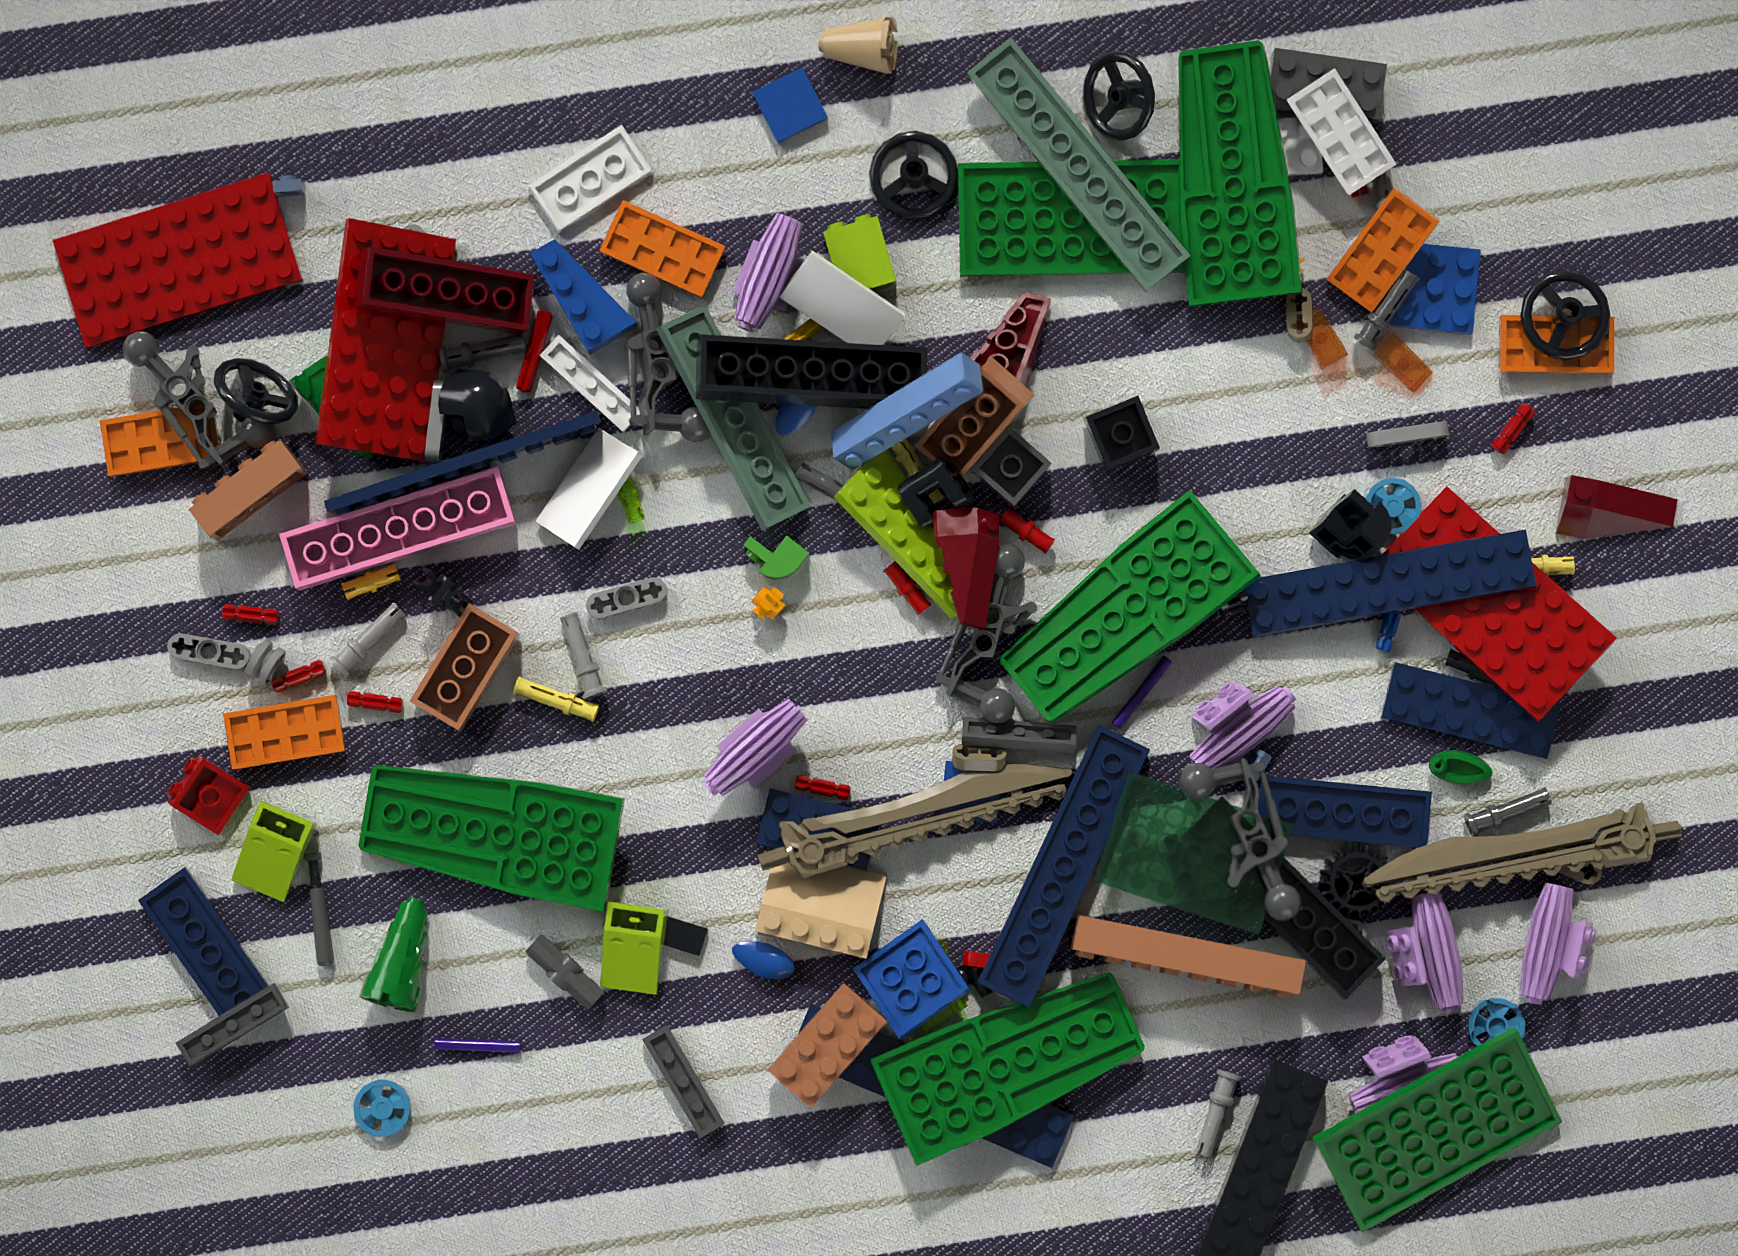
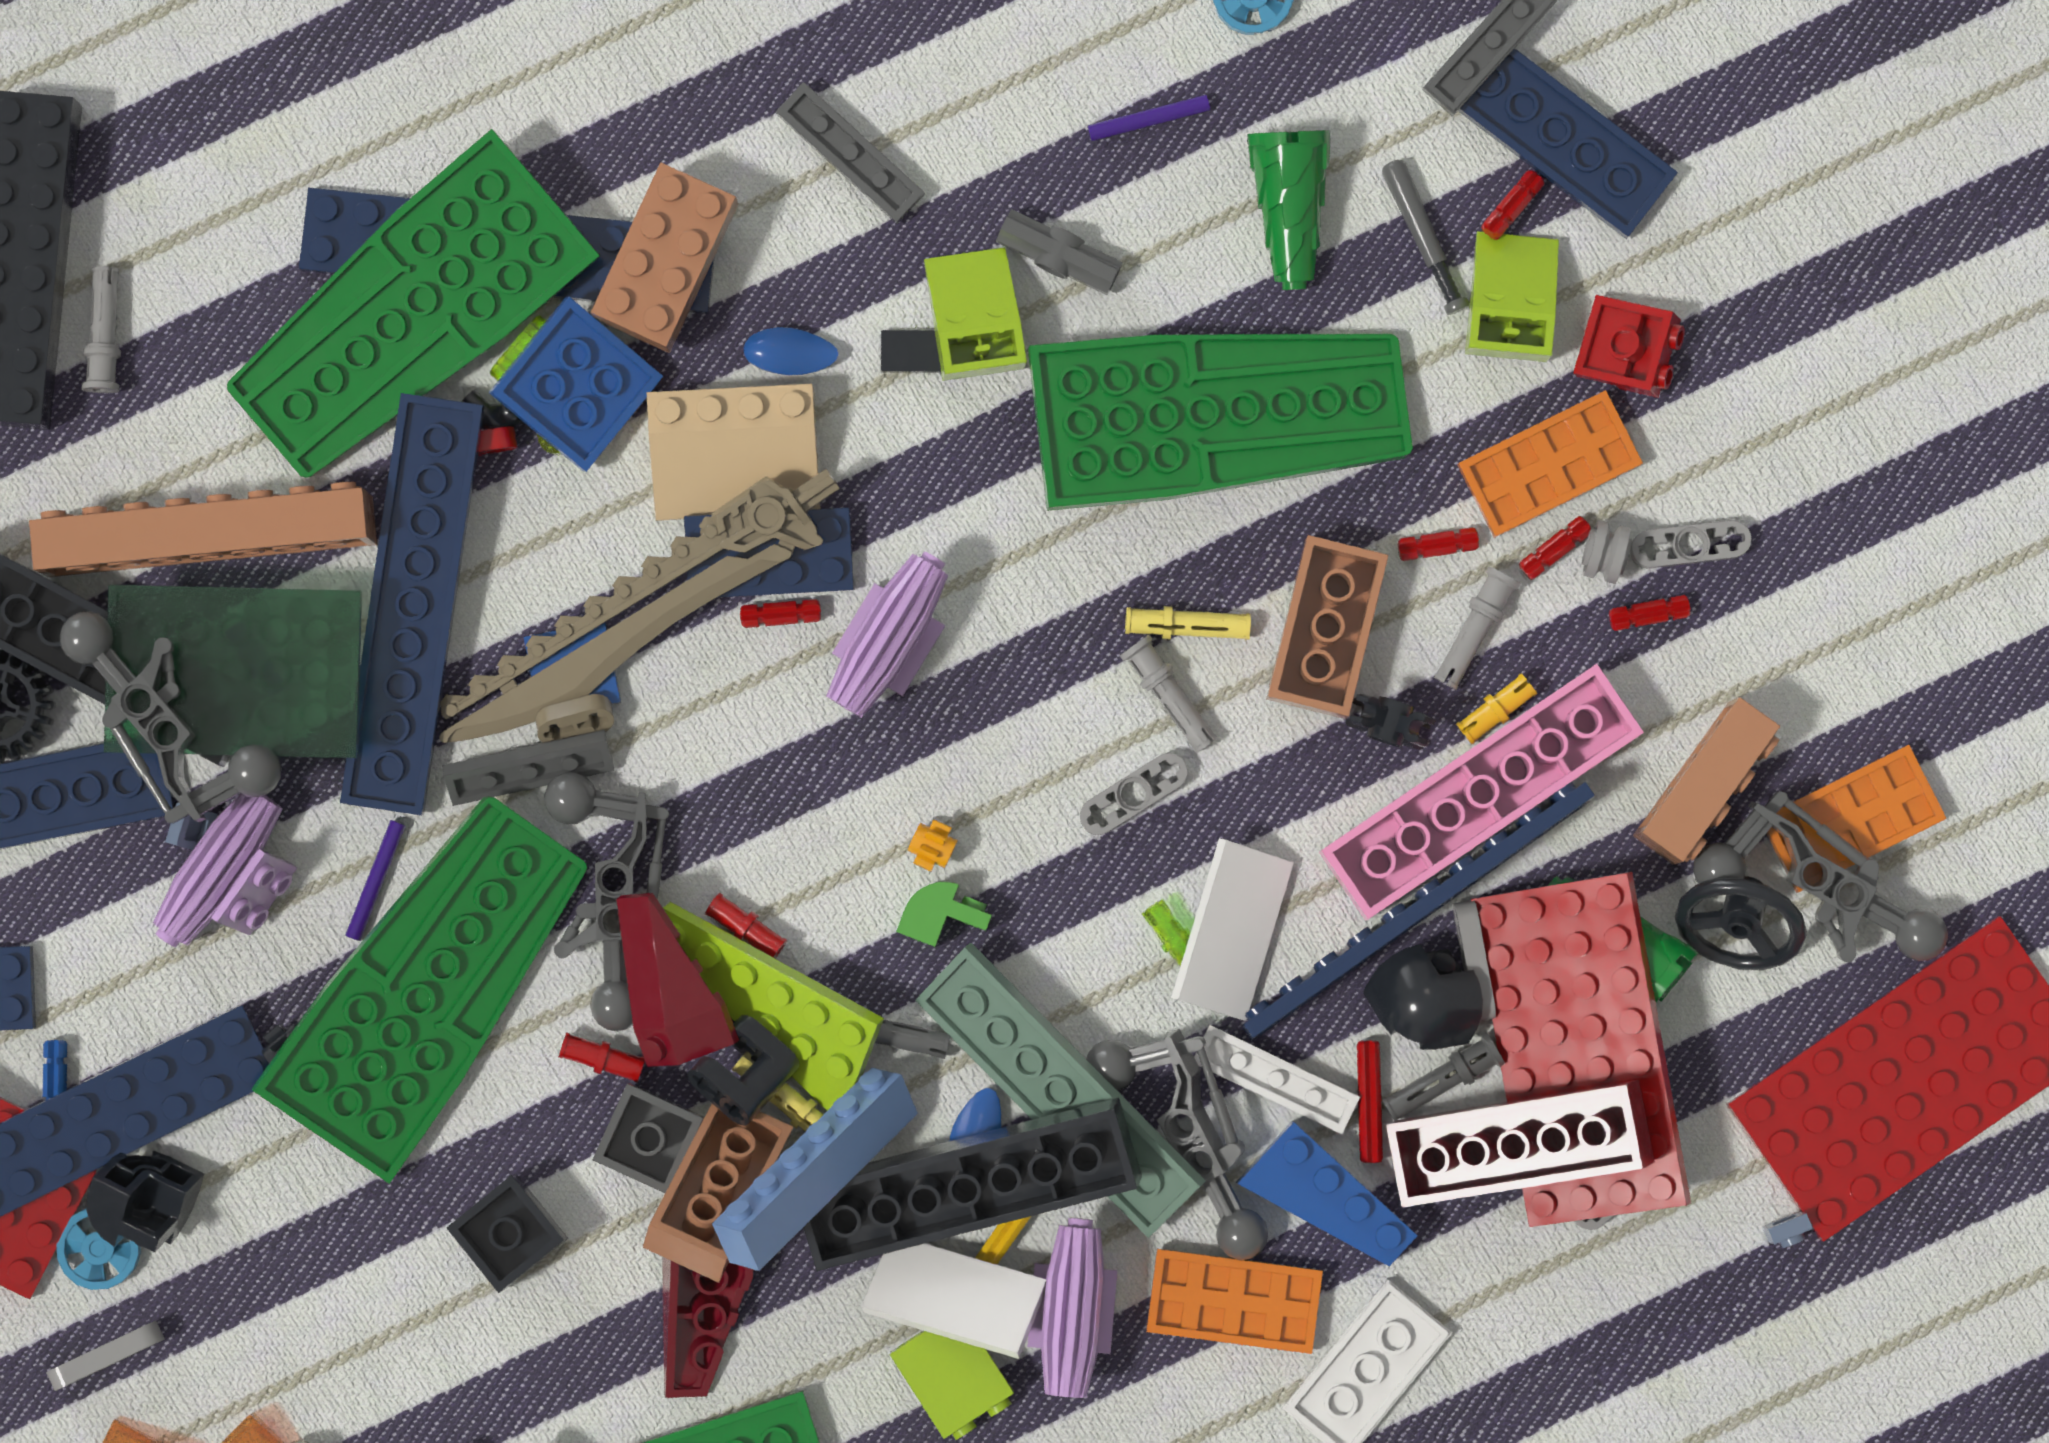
camera: 165 degrees right, 0 degrees up
(254, 912) = (1512, 204): none -> red axle

